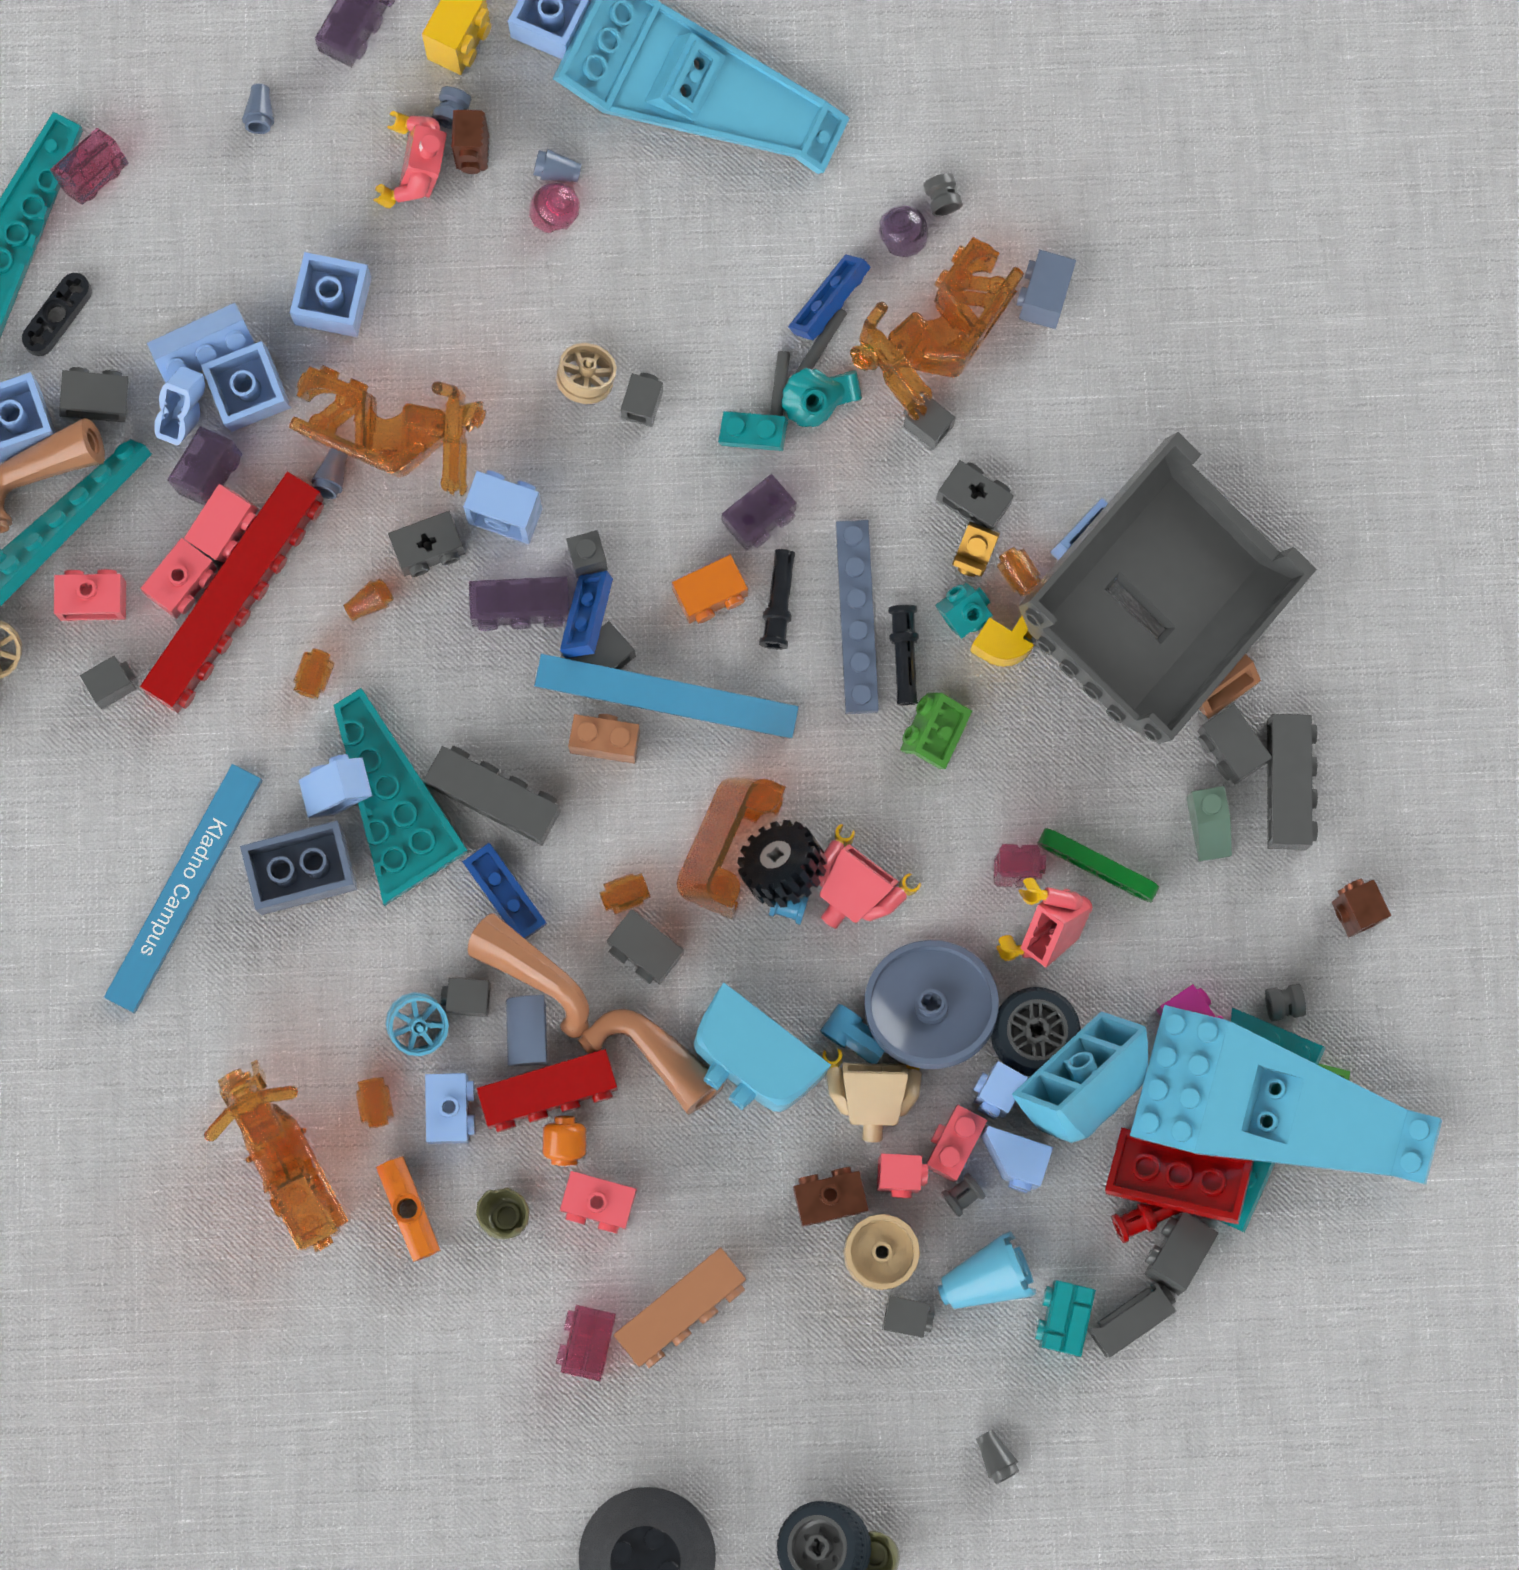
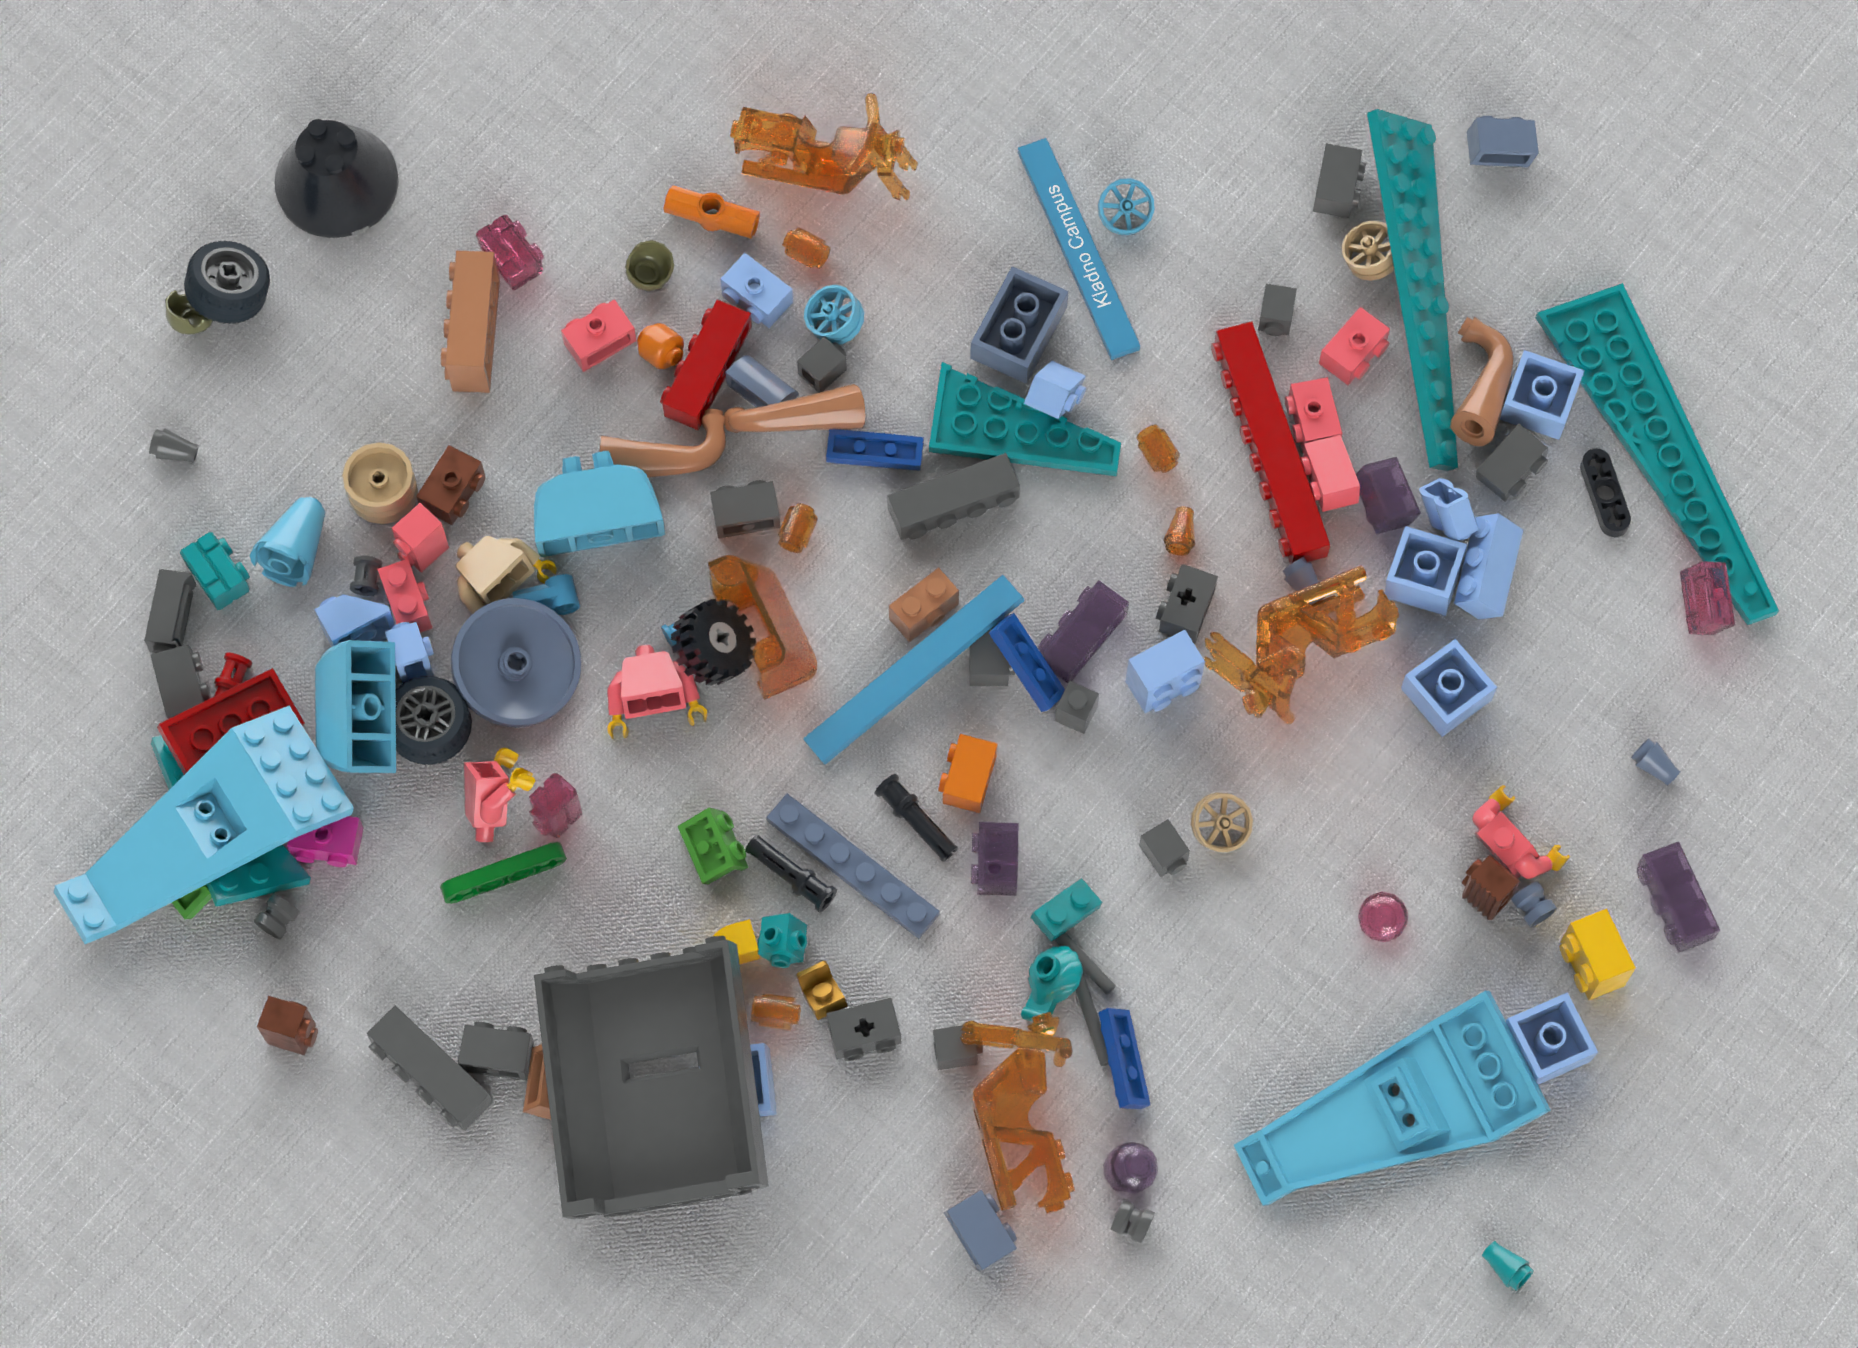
camera: 135 degrees right, 10 degrees down
(116, 874) = (1126, 206): none -> medium azure wheel
(555, 167) = (1415, 943): sand blue cone -> none
(907, 1317) = (321, 467): dark grey brick -> none
(1210, 823) = (457, 982): sand green slope -> none

